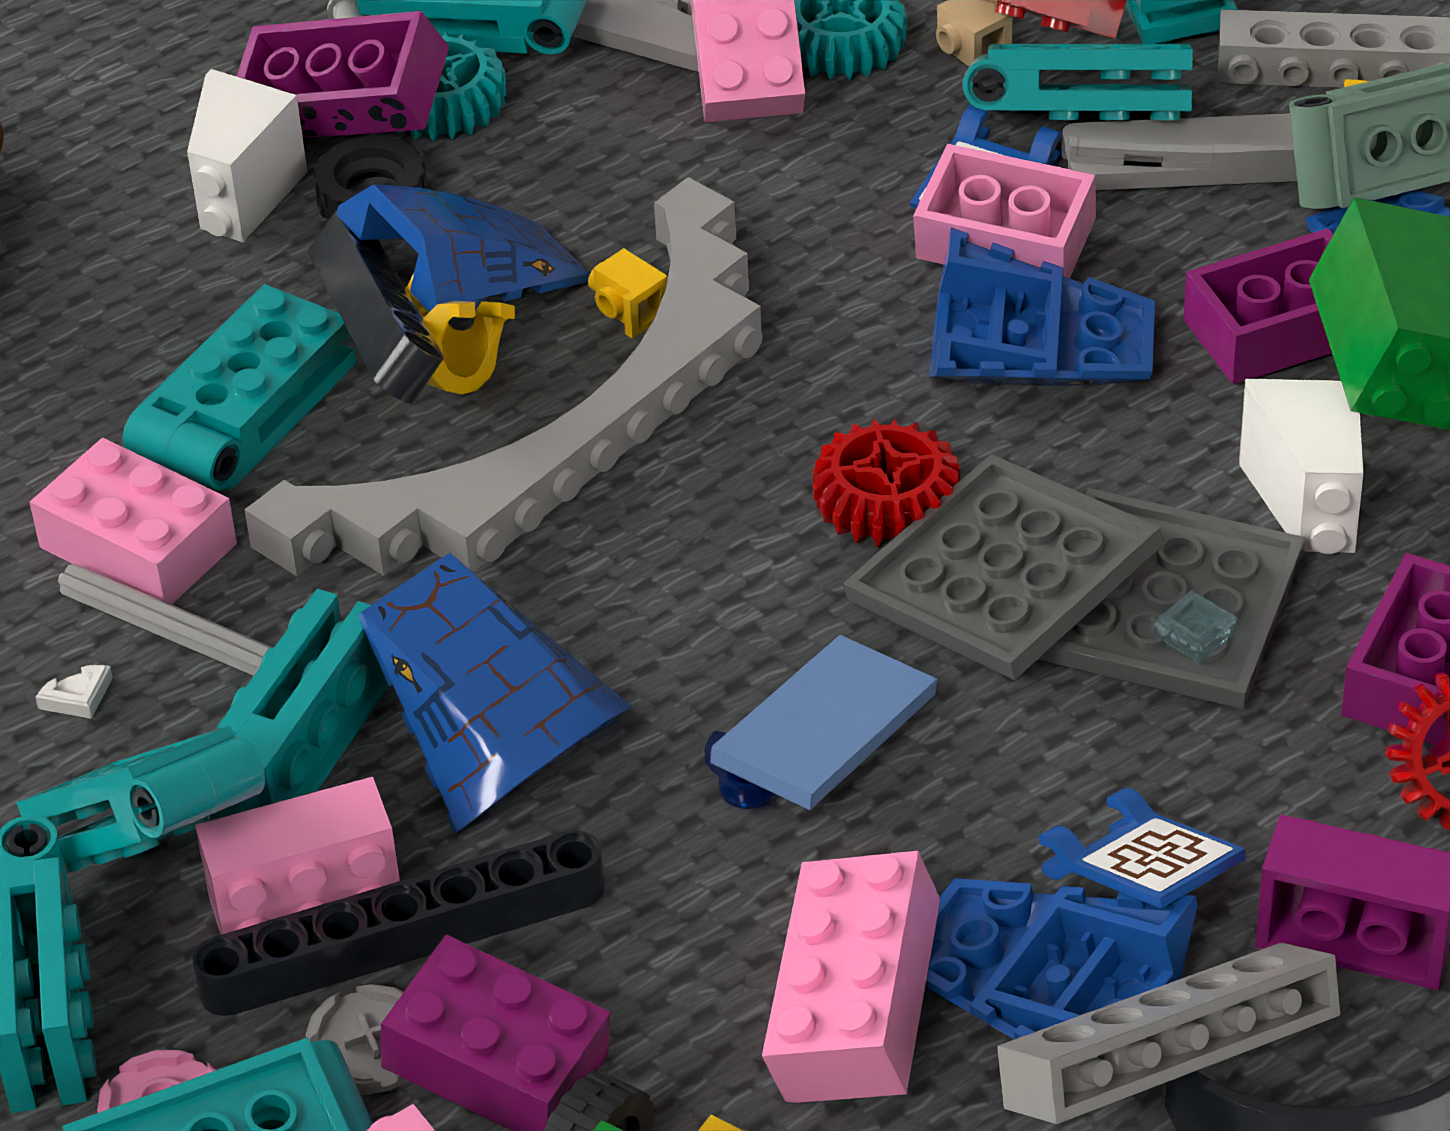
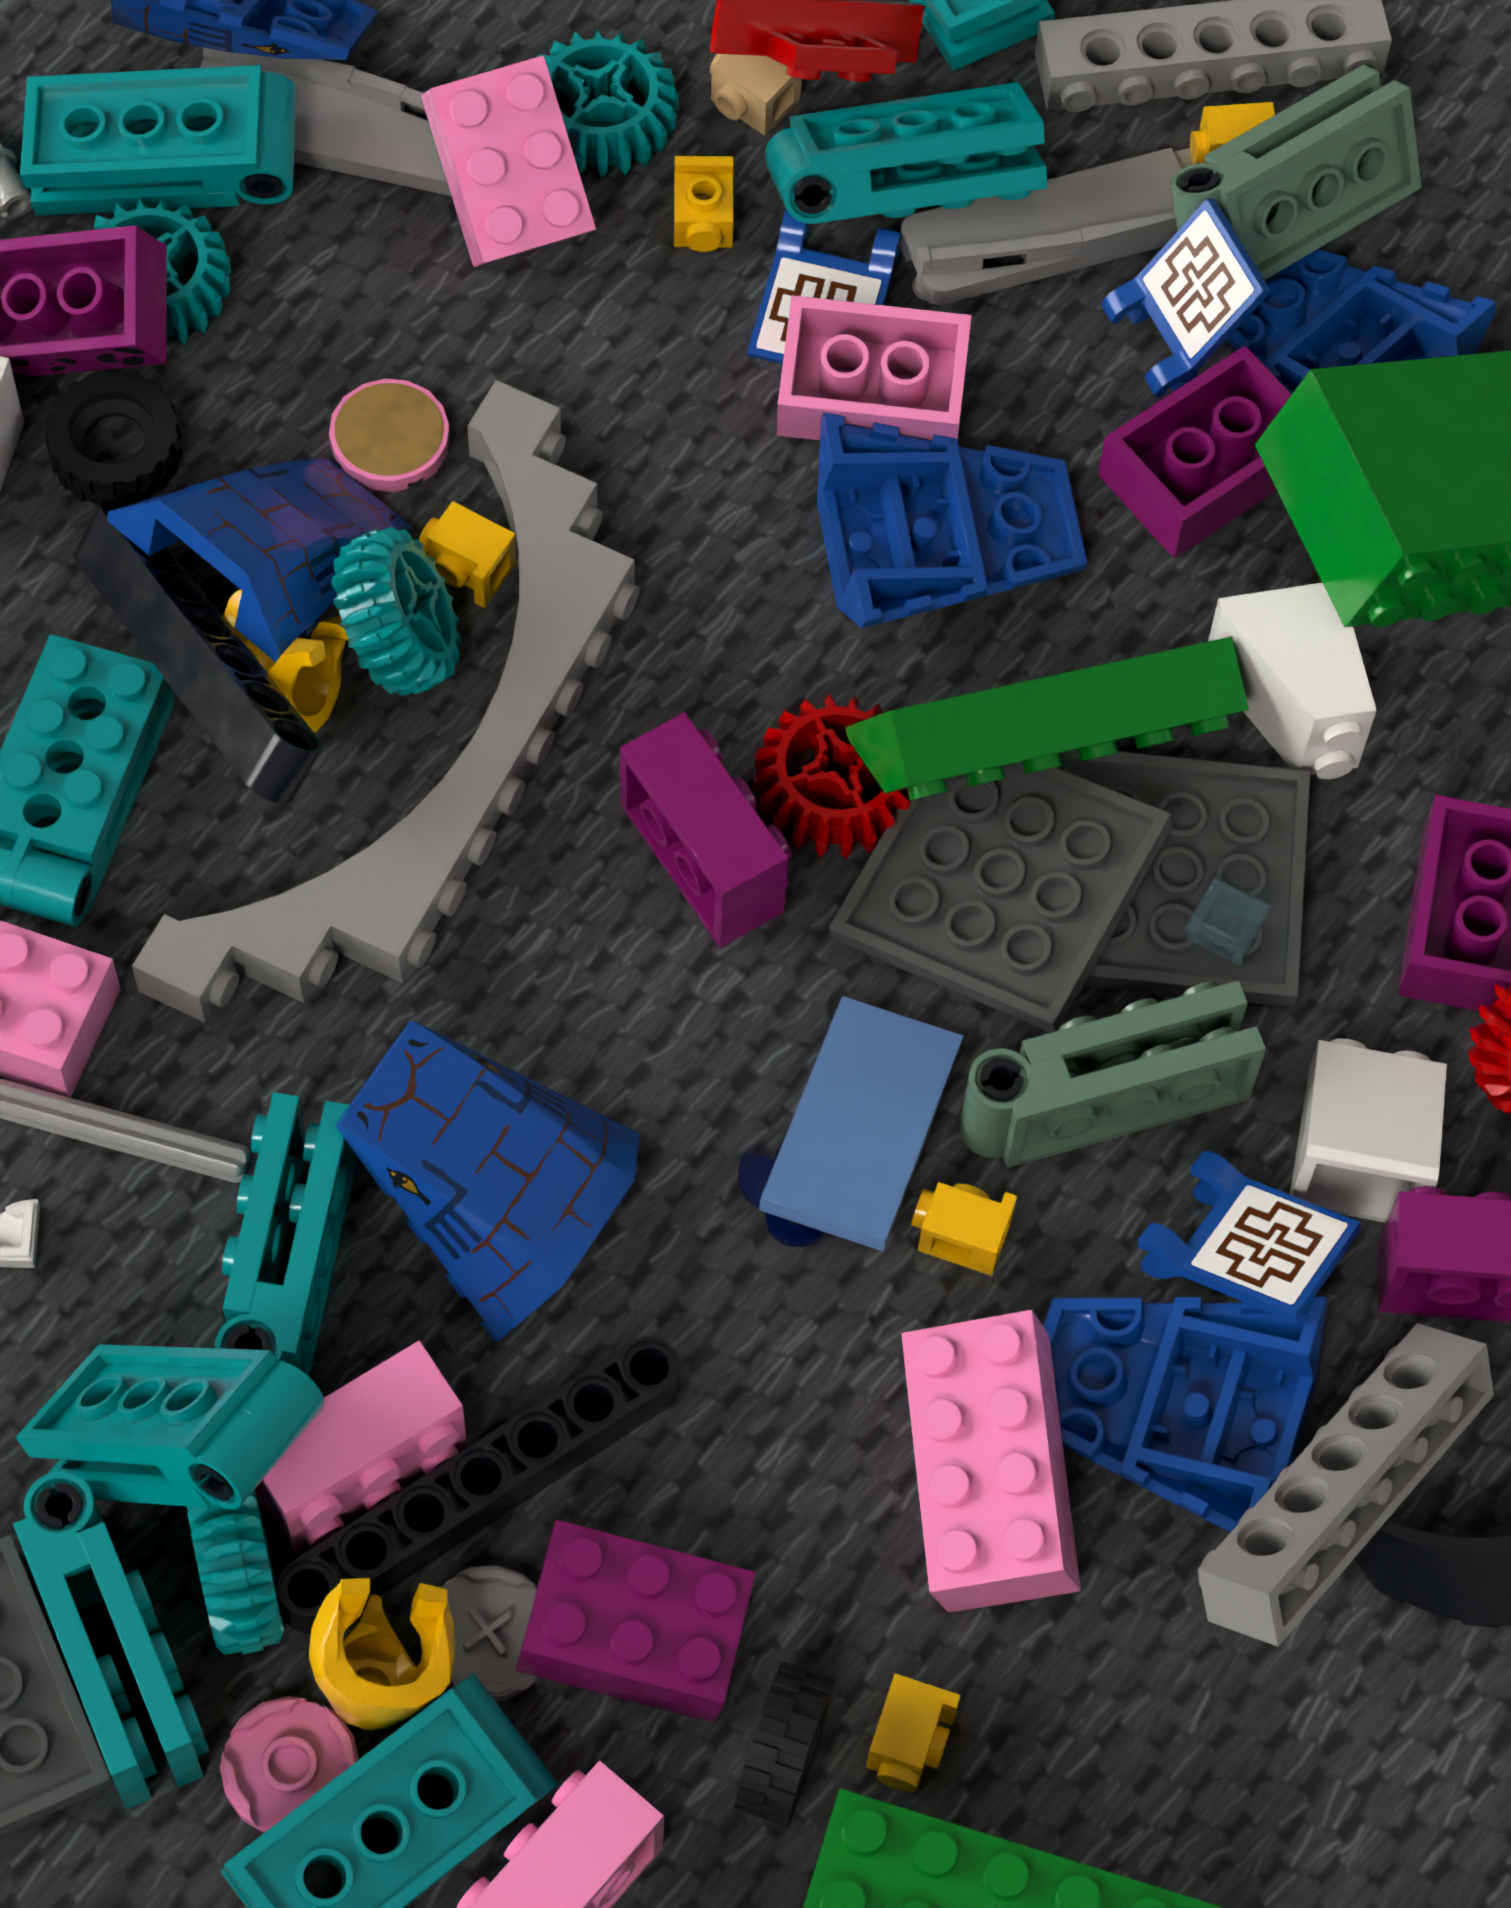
camera: 20 degrees left, 20 degrees up
(163, 926) = (237, 1576): none -> teal gear
(262, 1023) = (369, 1672): none -> yellow piece
(548, 307) = (396, 611): none -> teal gear
(595, 214) = (389, 434): none -> pearl gold tile
(755, 490) = (704, 828): none -> magenta brick
(892, 810) = (963, 1225): none -> yellow brick
(904, 96) = (703, 202): none -> yellow brick
(1052, 713) = (1112, 1075): none -> sand green hinge
(1078, 442) = (1050, 717): none -> green slope
(1271, 774) = (1368, 1128): none -> white slope
(1293, 185) = (1195, 294): none -> flag

